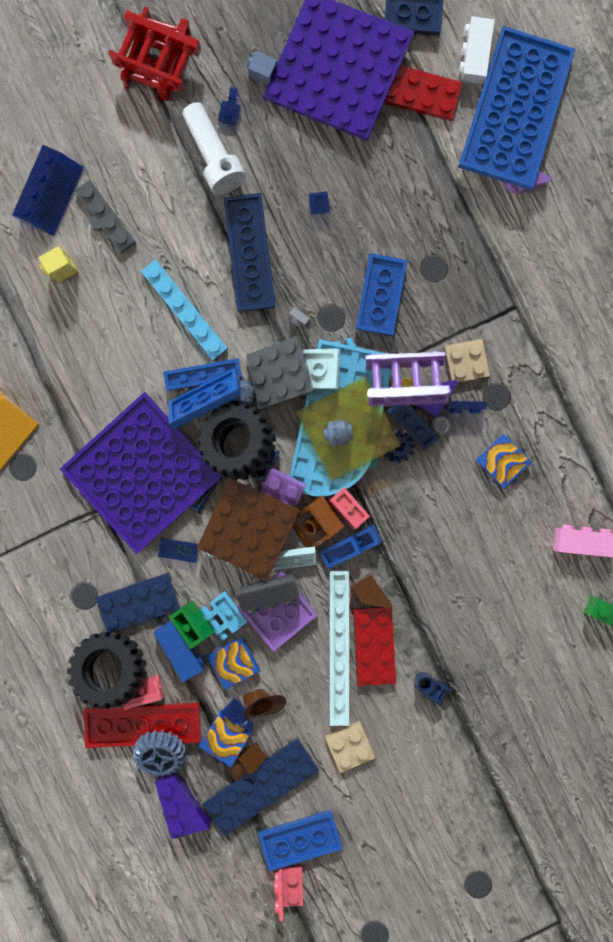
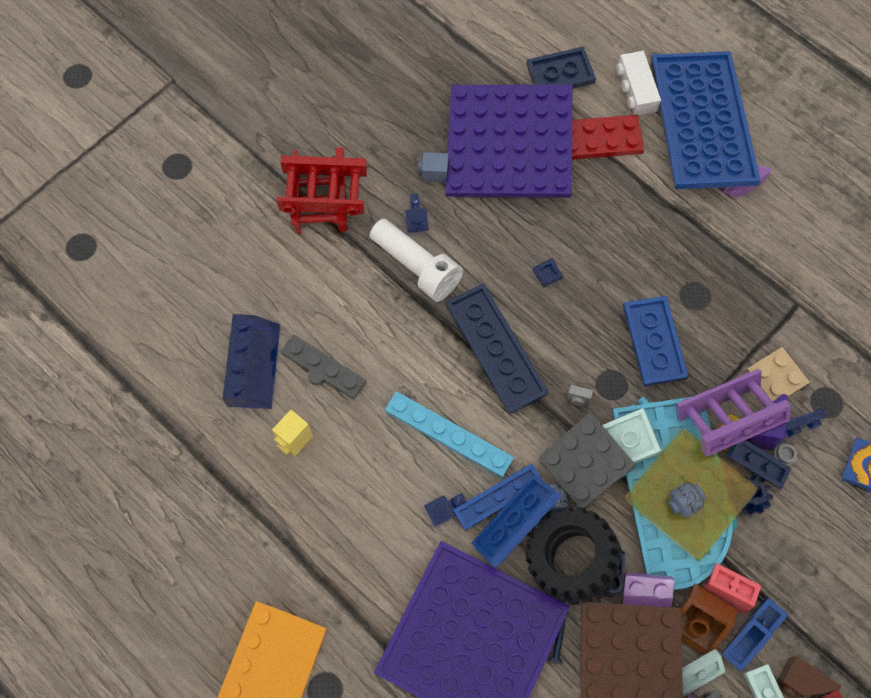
camera: 20 degrees left, 20 degrees down
(155, 367) = (442, 510): none -> clear blue plate

